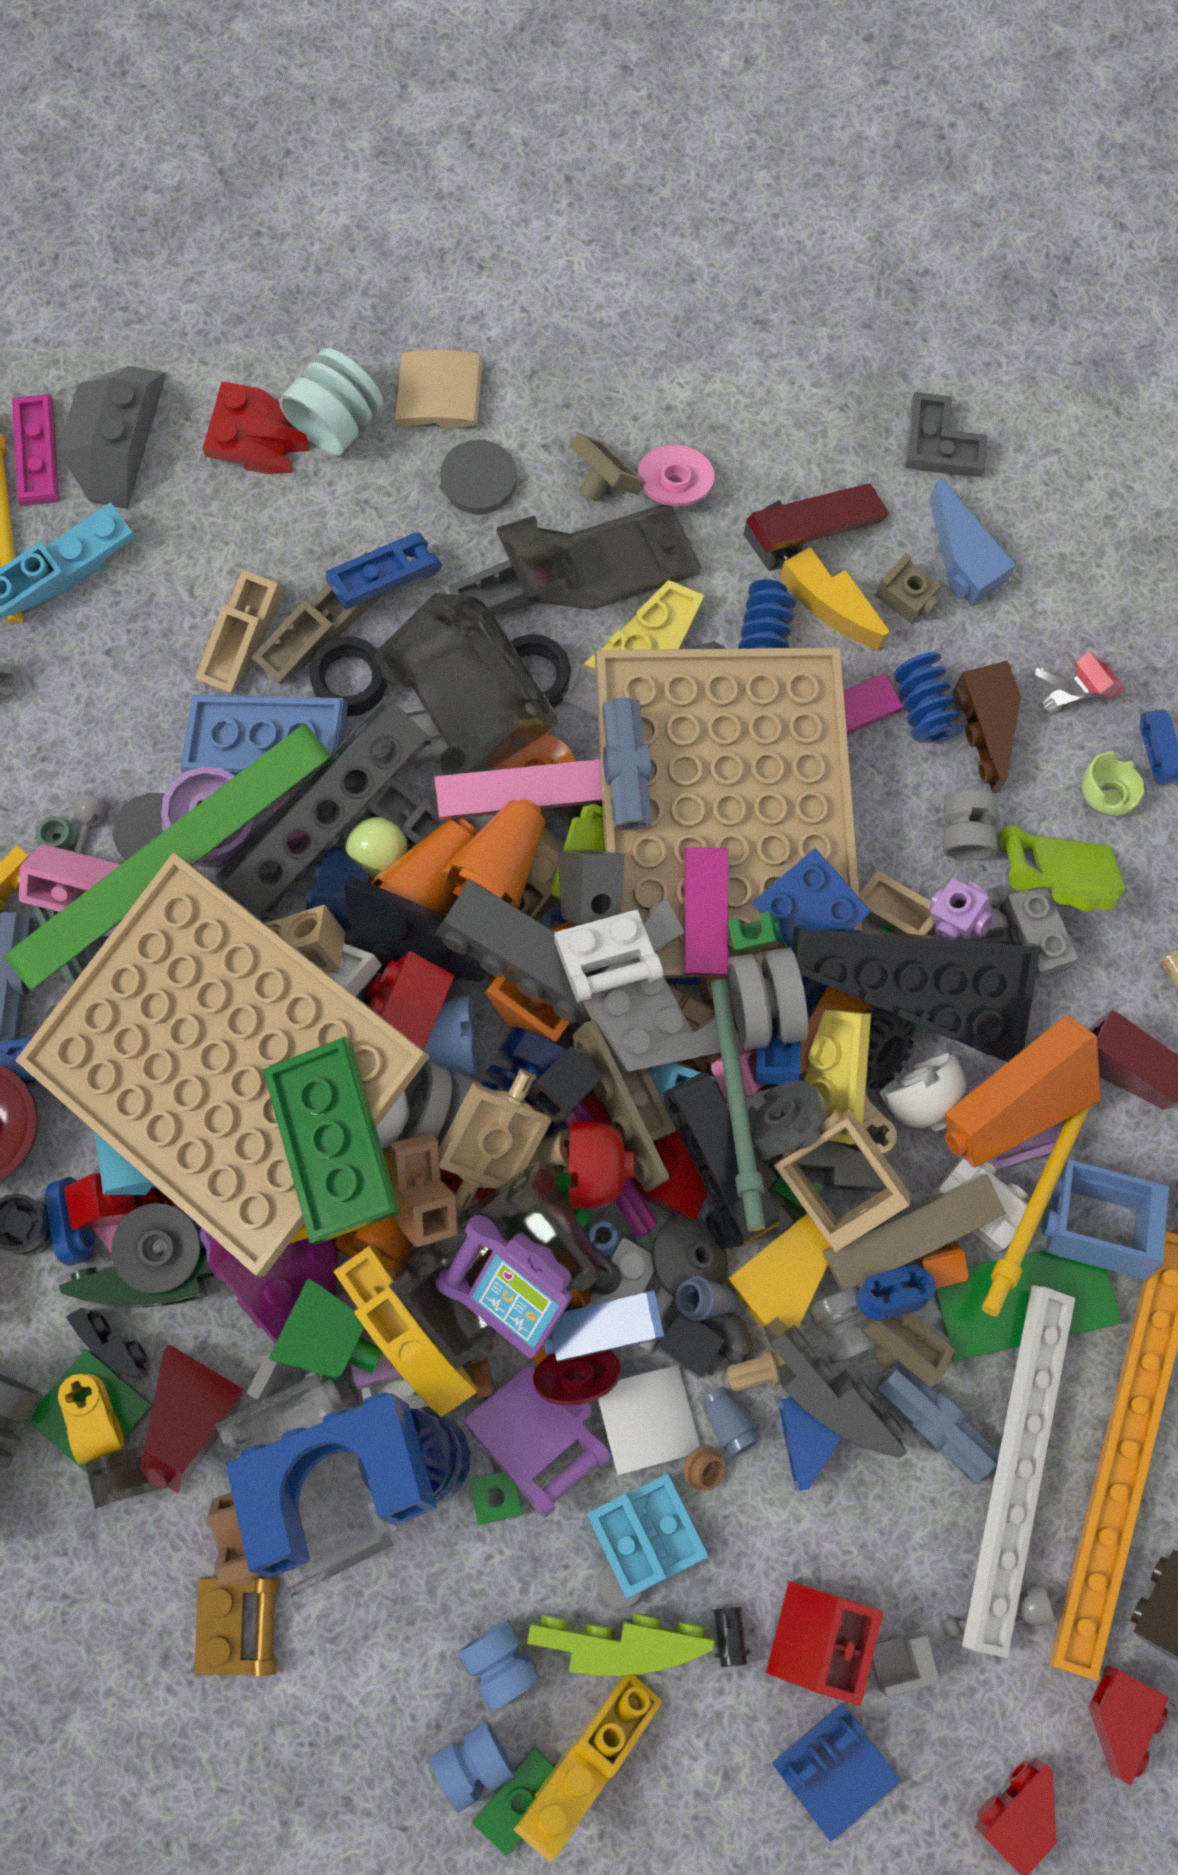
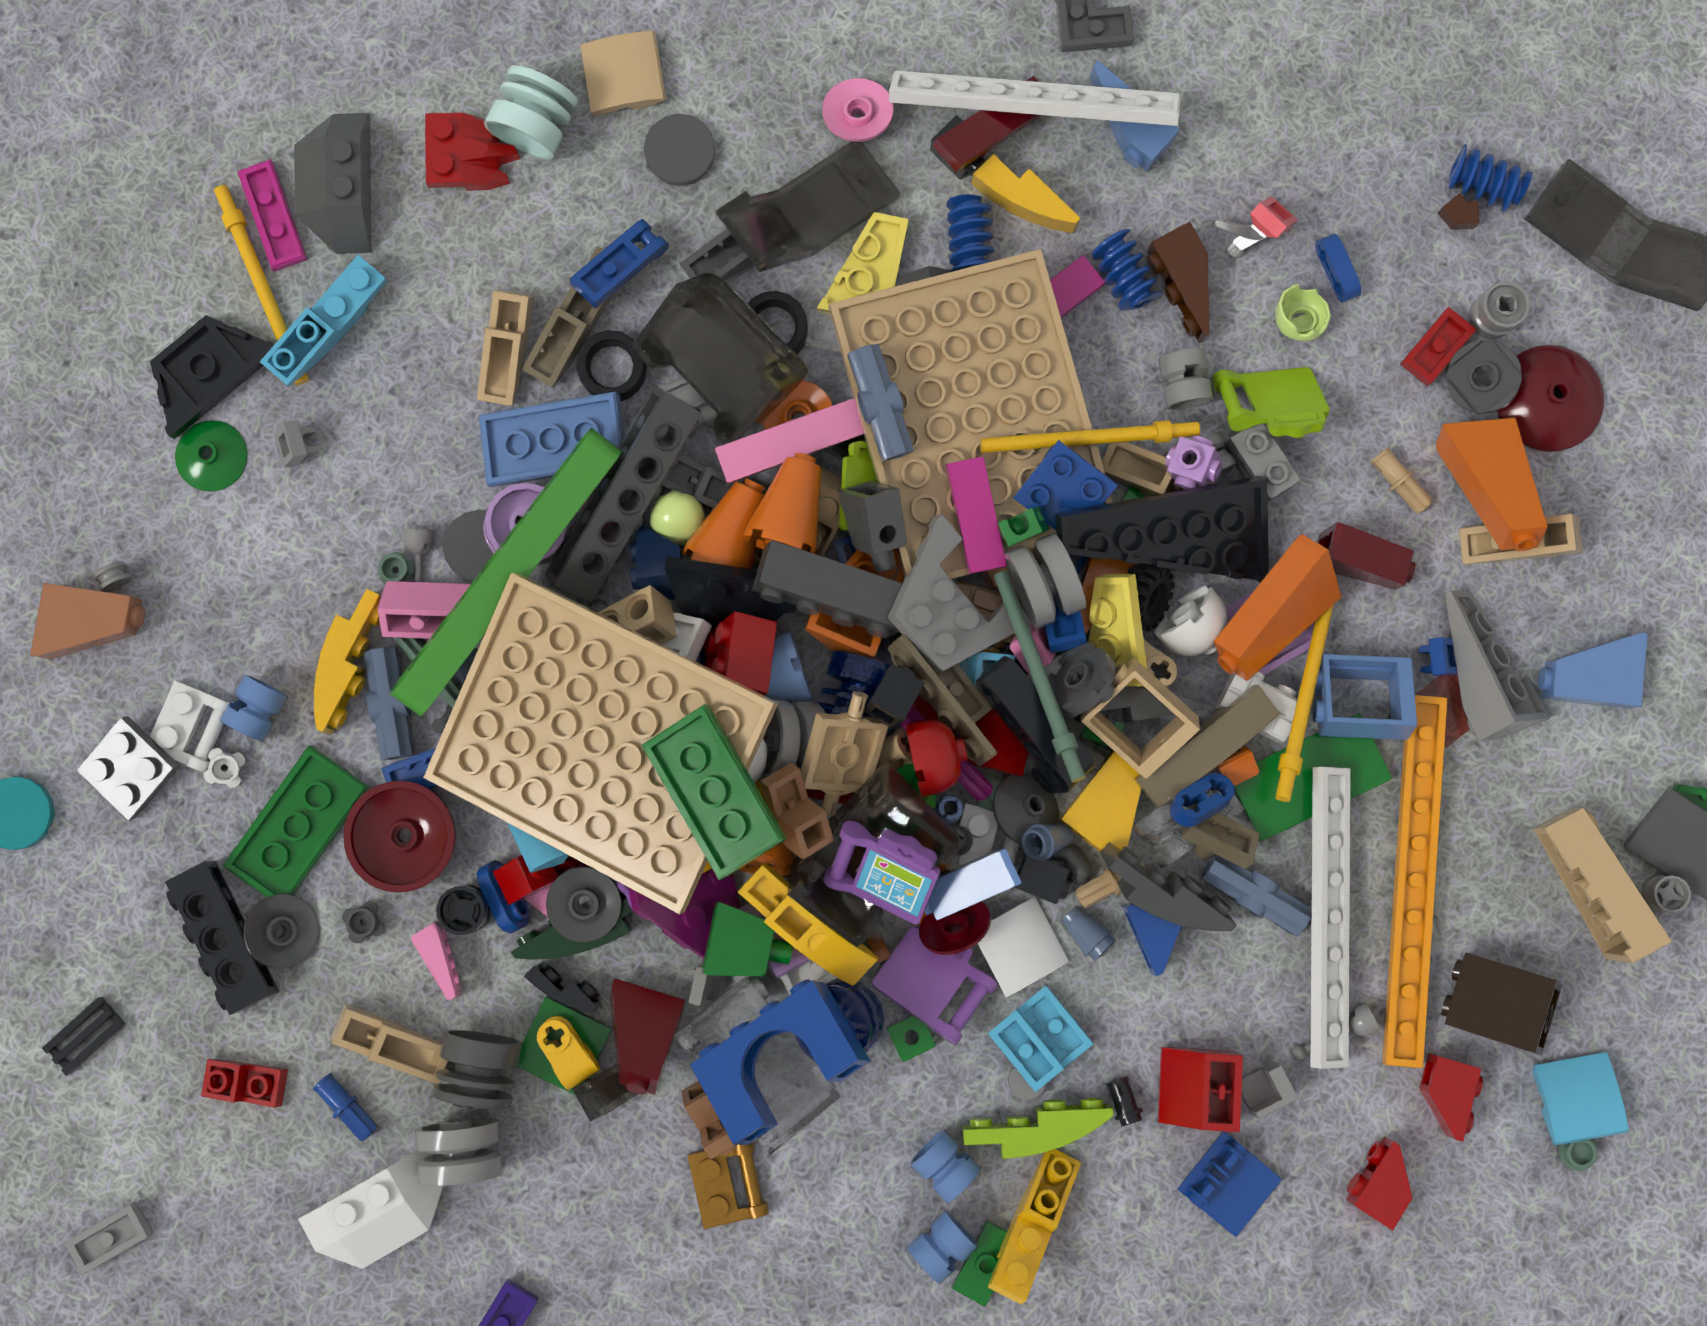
camera: 10 degrees left, 10 degrees up
(606, 469) = (795, 118): dark tan tile -> none
(606, 944) = (898, 569): white plate -> none
(704, 1468) = (1074, 975): medium nougat plate -> none
(868, 499) = (1035, 98): none -> white tile
(903, 600) = (1080, 179): dark tan brick -> none
(930, 869) = (1160, 432): none -> yellow bar

